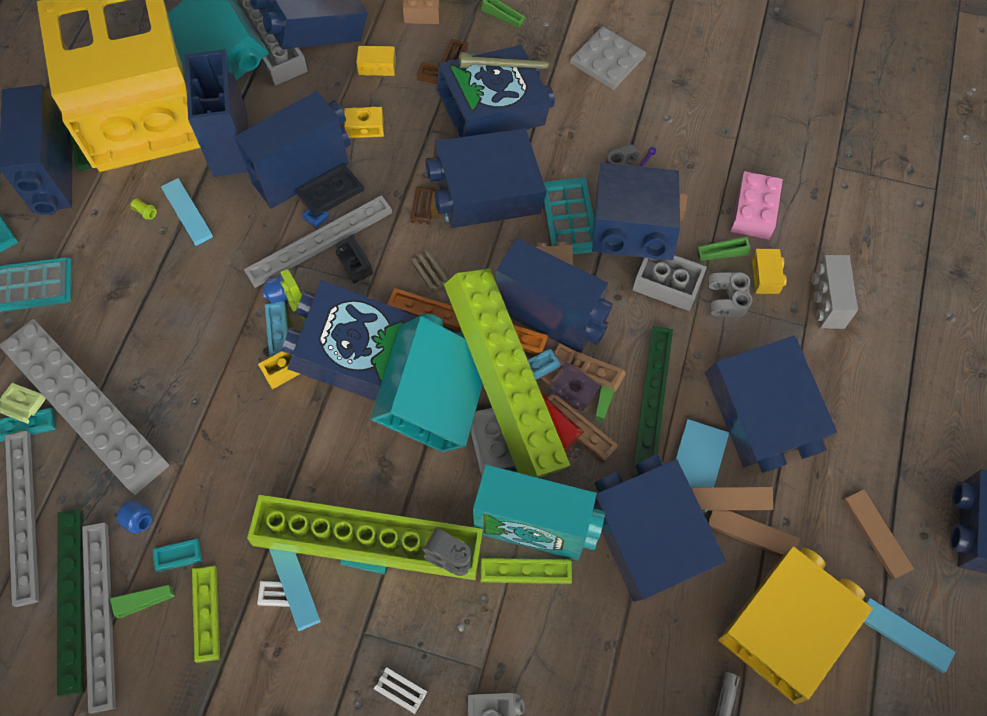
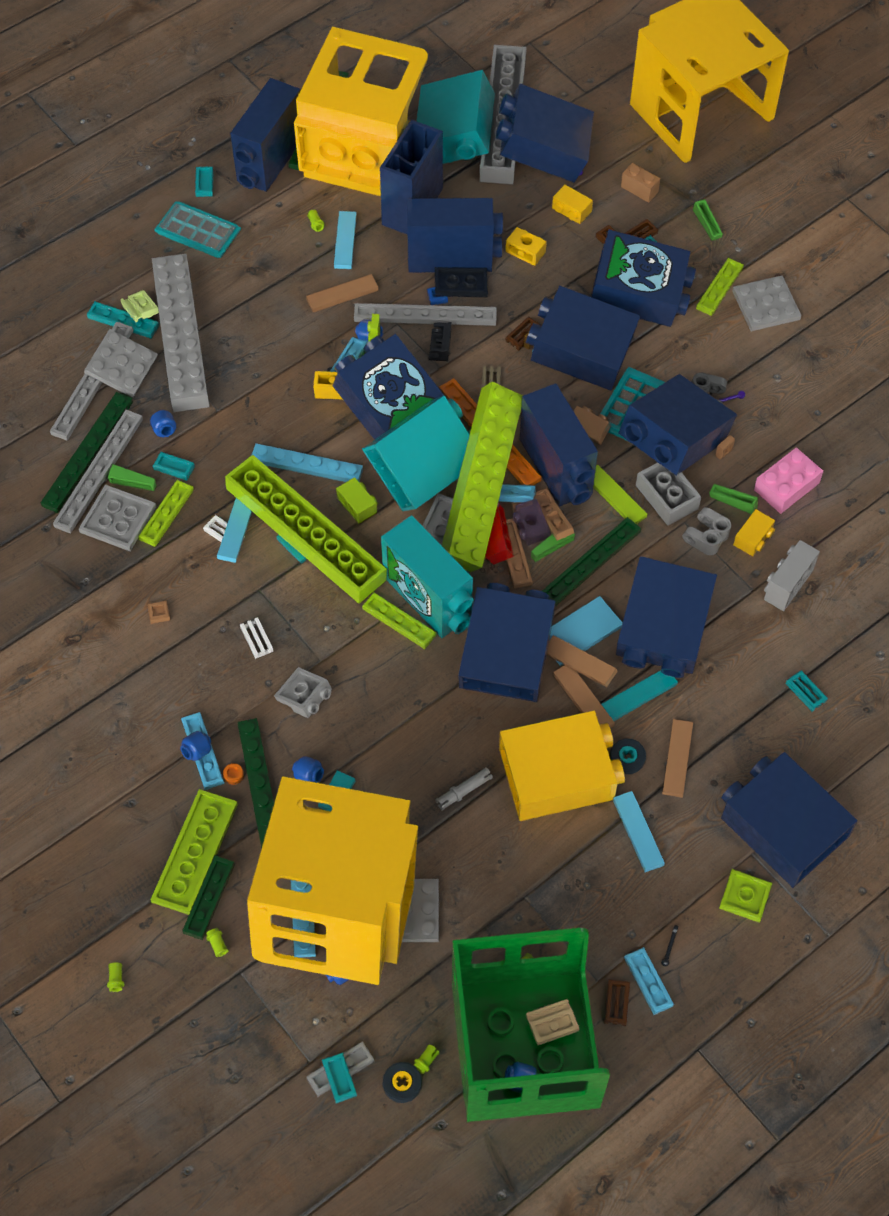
camera: 35 degrees right, 5 degrees down
(41, 478) = (121, 363): none -> light grey plate
(156, 656) = (117, 517): none -> light grey plate
(222, 266) = (342, 293): none -> medium nougat tile
(313, 464) = (307, 463): none -> medium azure plate
(393, 471) = (357, 500): none -> lime brick
(446, 552) = (347, 562): dark grey piece -> none
(467, 60) = (632, 238): olive piece -> none
(558, 65) = (719, 286): none -> lime tile
(635, 314) = (617, 497): none -> lime tile
(796, 494) = (638, 695): none -> teal tile
(842, 554) = (625, 747): none -> black bush
(925, 395) = (807, 698): none -> teal tile

